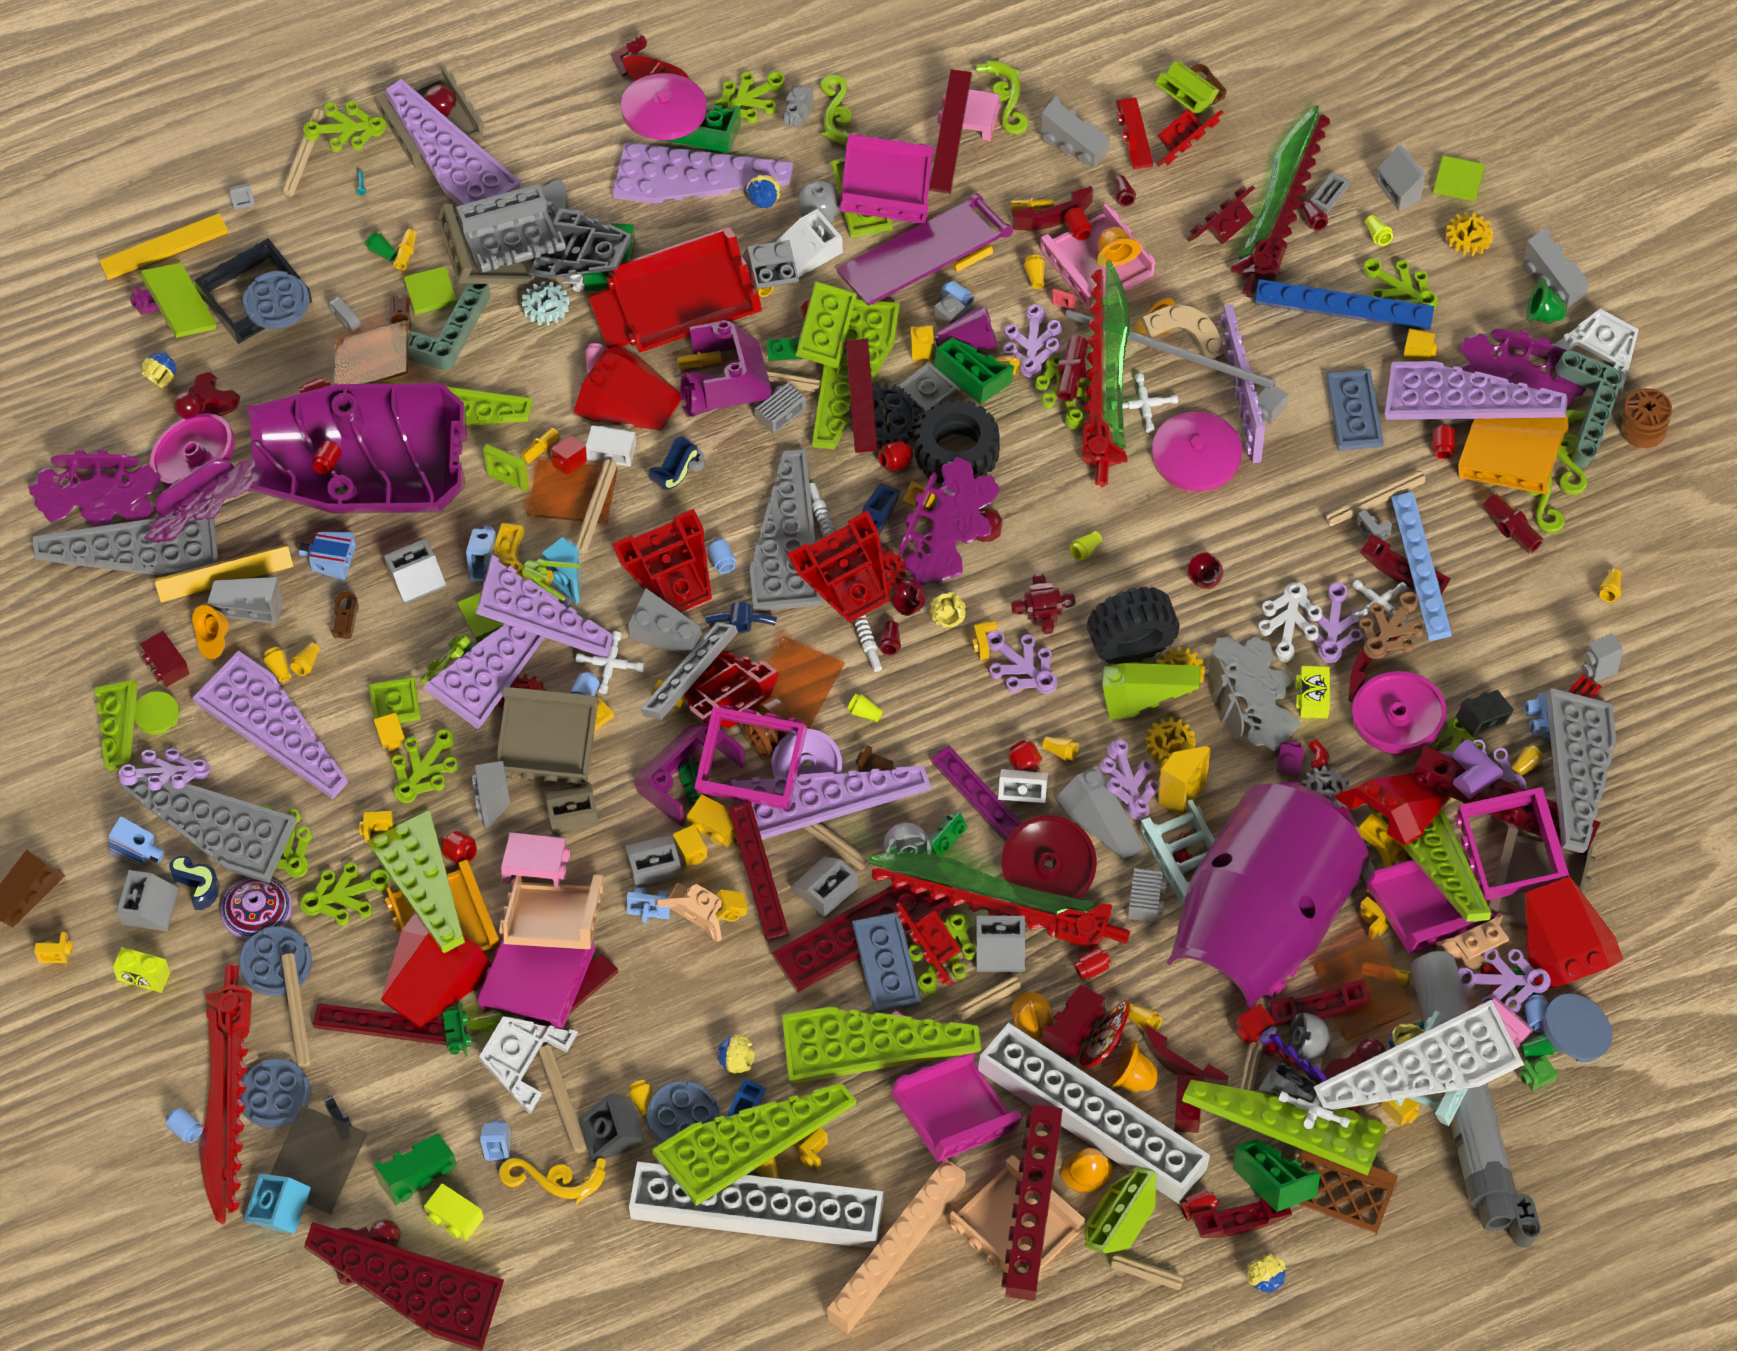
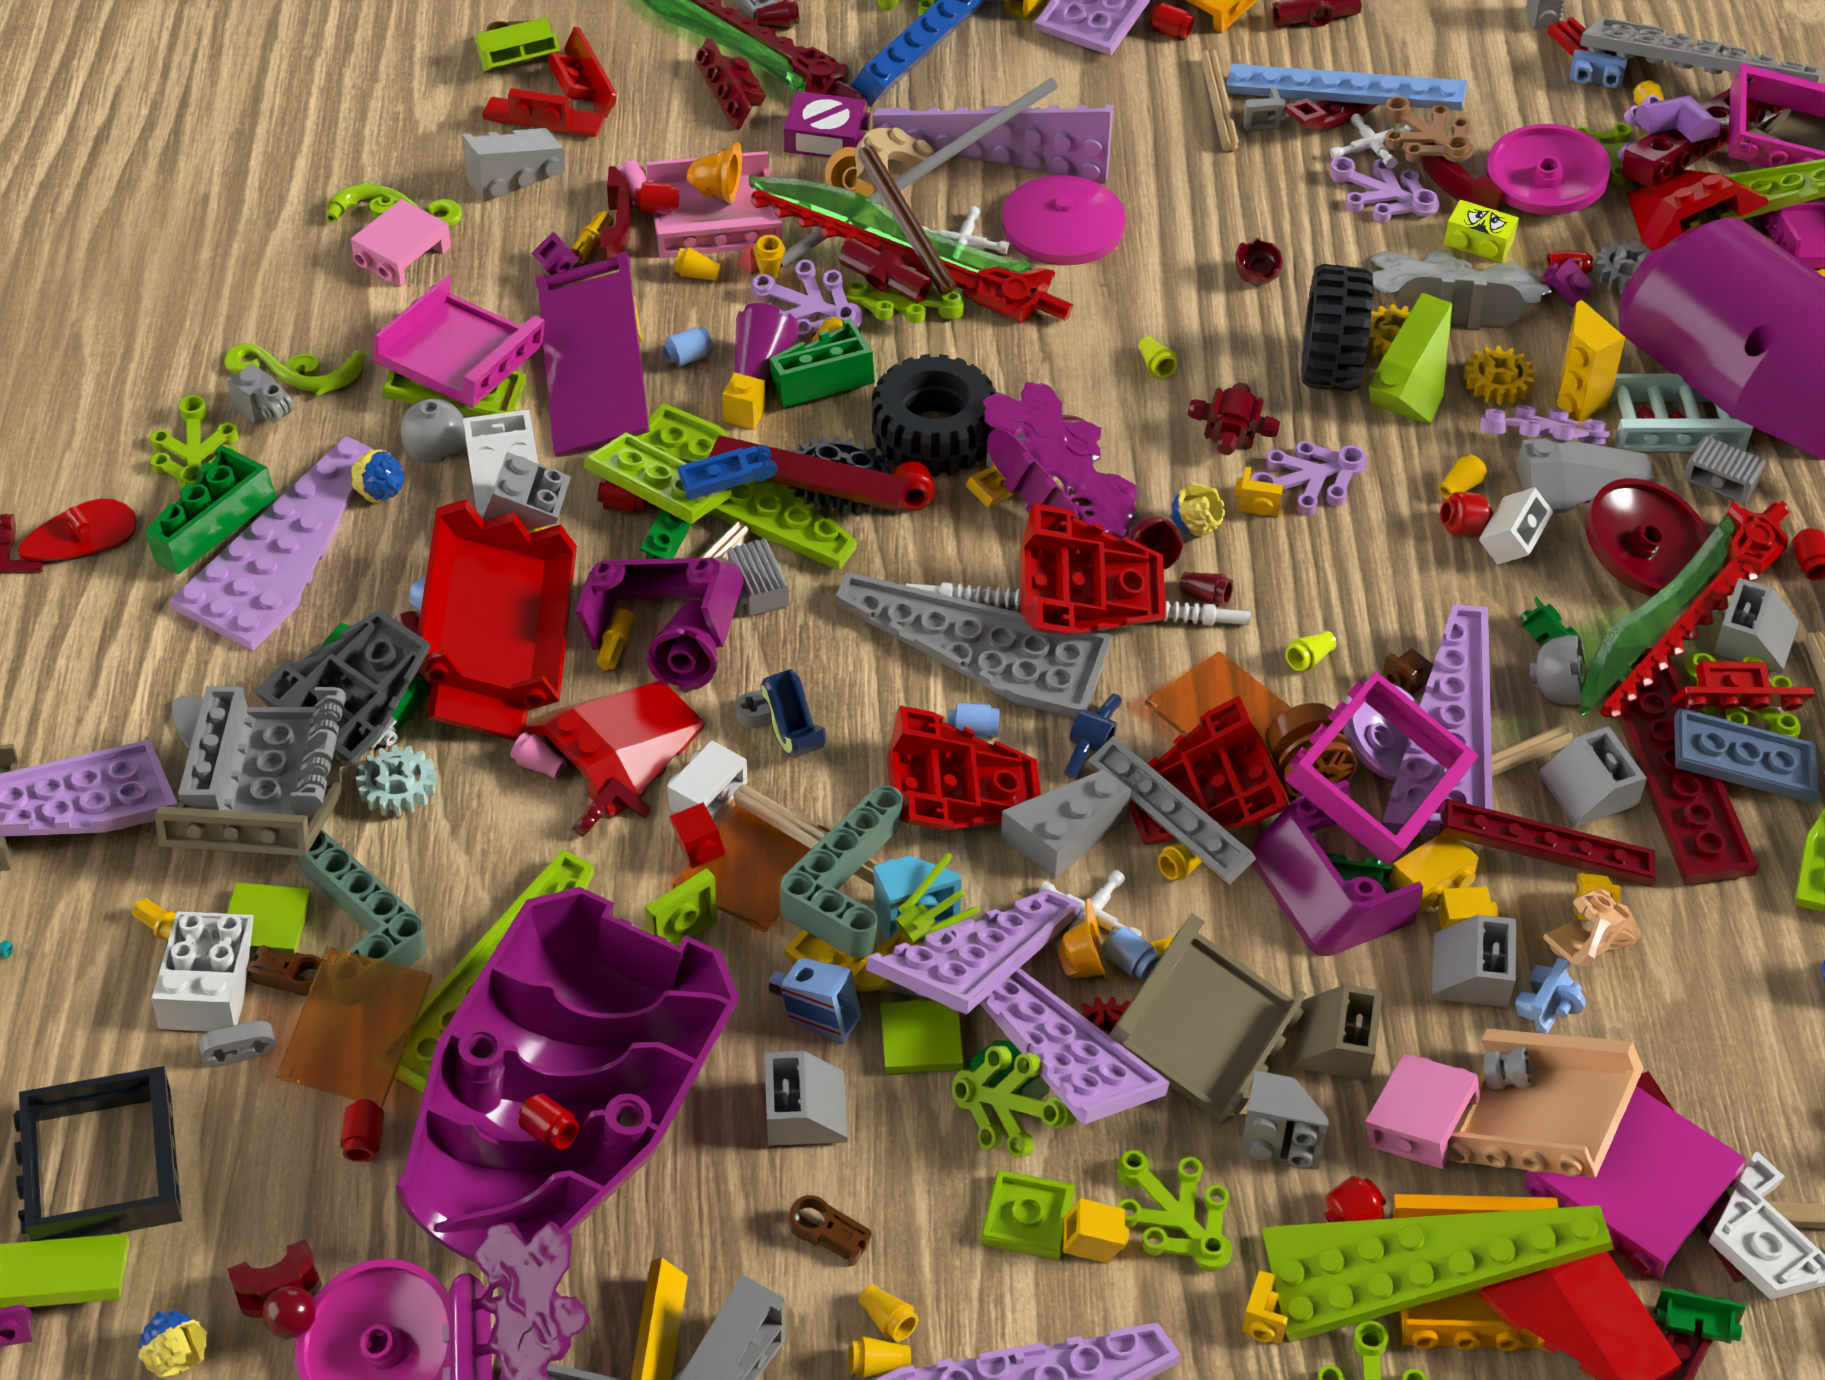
camera: 70 degrees left, 10 degrees down
(276, 300) = (156, 1117): sand blue tile -> none
(330, 553) = (700, 1209): light blue torso -> none
(378, 277) = (203, 972): none -> white slope
(380, 246) = (137, 953): green cone -> none
(486, 1021) = (1694, 1266): clear neon green cone -> none
(540, 445) = (650, 869): yellow axle -> none
(562, 524) = (811, 886): none -> sand green beam
(573, 663) = (1081, 948): none -> light orange piece
(575, 402) = (597, 807): none -> dark red piece
(575, 891) = (1508, 1069): none -> light grey wheel
(663, 106) = (162, 517): dark pink dish -> none
(833, 351) = (726, 471): none -> blue hinge
(881, 505) = (989, 534): dark blue slope -> none
(928, 387) = (813, 421): light grey tile -> none
(948, 310) = (713, 360): light grey brick -> none
(950, 131) = (421, 254): dark red tile -> none
(975, 792) = (1506, 582): magenta tile -> none
(1000, 196) = (555, 255): none -> magenta bracket
(1055, 302) = (769, 254): none -> yellow cone
(1095, 205) = (634, 176): none -> bright pink cone
(1114, 359) = (906, 220): none -> reddish brown axle
(1123, 191) = (626, 150): dark red cone -> none
(1209, 284) = (824, 124): none -> magenta brick
(1290, 617) = (1328, 205): white plant -> none
(1354, 409) = (1081, 76): sand blue tile -> none
(1484, 712) = (1578, 104): pearl dark grey brick -> none

